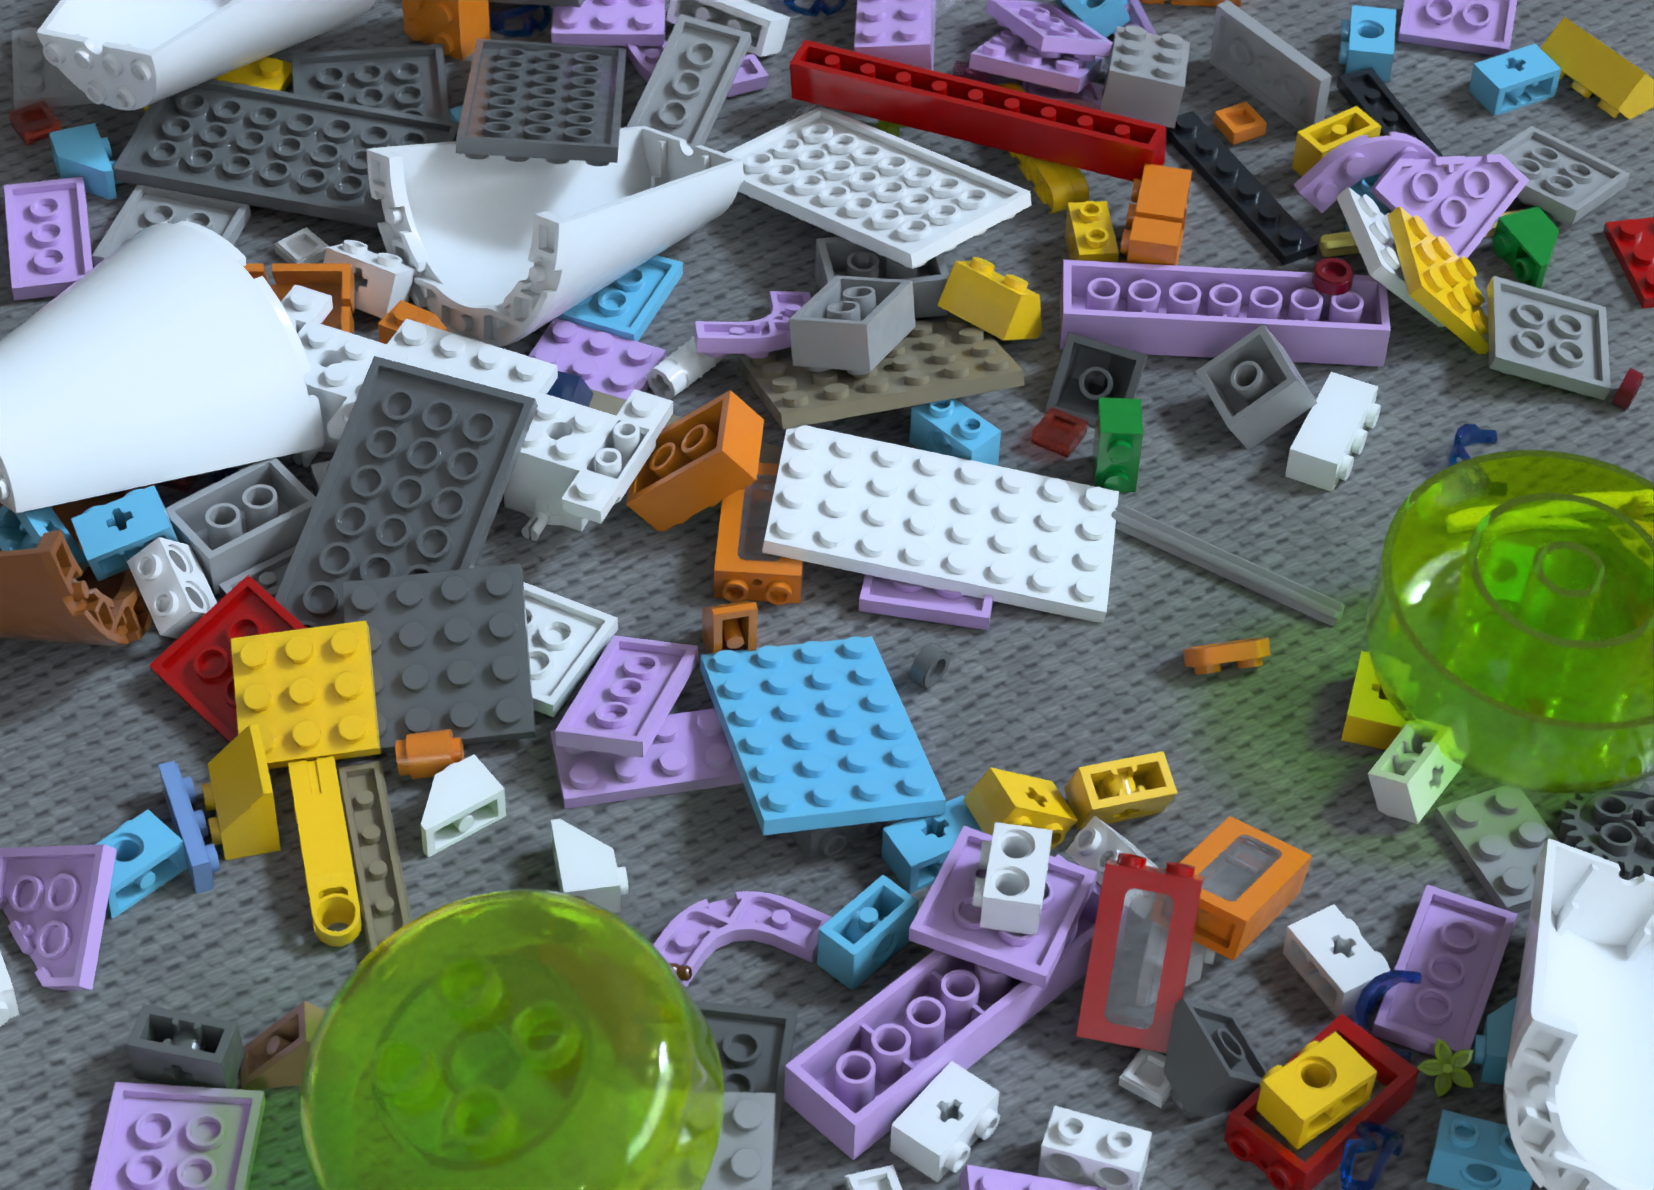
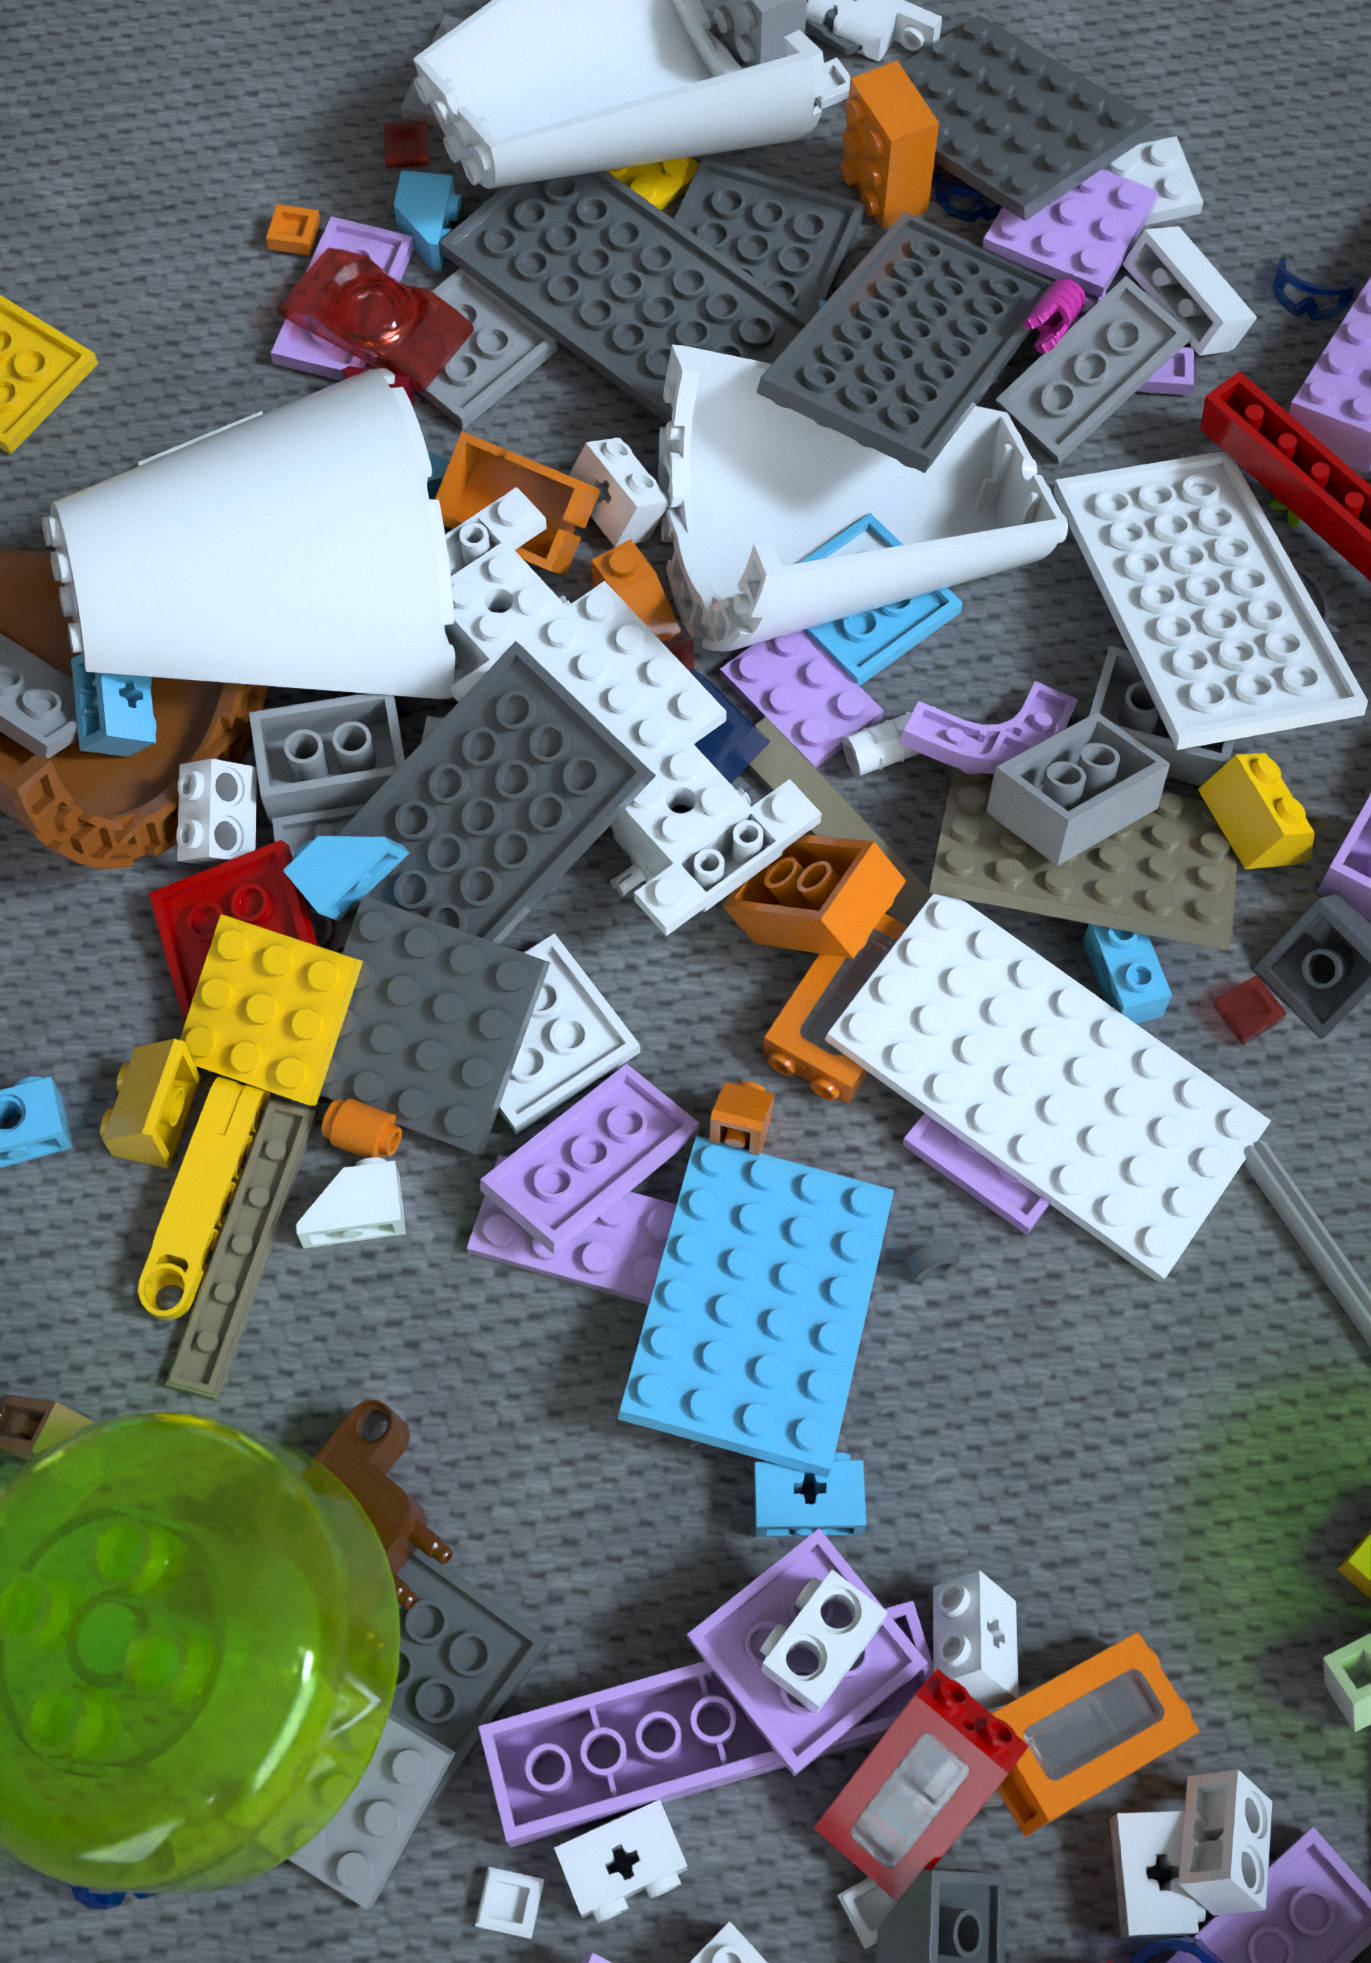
camera: 30 degrees right, 20 degrees up
(73, 231) = (376, 316): none -> clear red slope
(121, 530) = (193, 728): medium azure brick -> none
(189, 826) = (88, 1104): medium blue tile -> none
(301, 247) = (586, 415): white tile -> none
(313, 571) = (342, 869): none -> medium azure slope
(587, 867) = (433, 1357): white slope -> none
(634, 62) = (1055, 313): none -> dark pink hinge
(747, 917) = (541, 1483): lavender plate -> none
(866, 932) = (669, 1583): medium azure brick -> none
(1019, 801) = (912, 1512): yellow brick -> none
(1117, 444) = (1294, 1070): green brick -> none
(1121, 789) = (1039, 1534): yellow brick -> none
(1245, 652) = (1268, 1398): orange plate -> none
(1374, 909) = (1226, 1843): none -> white brick

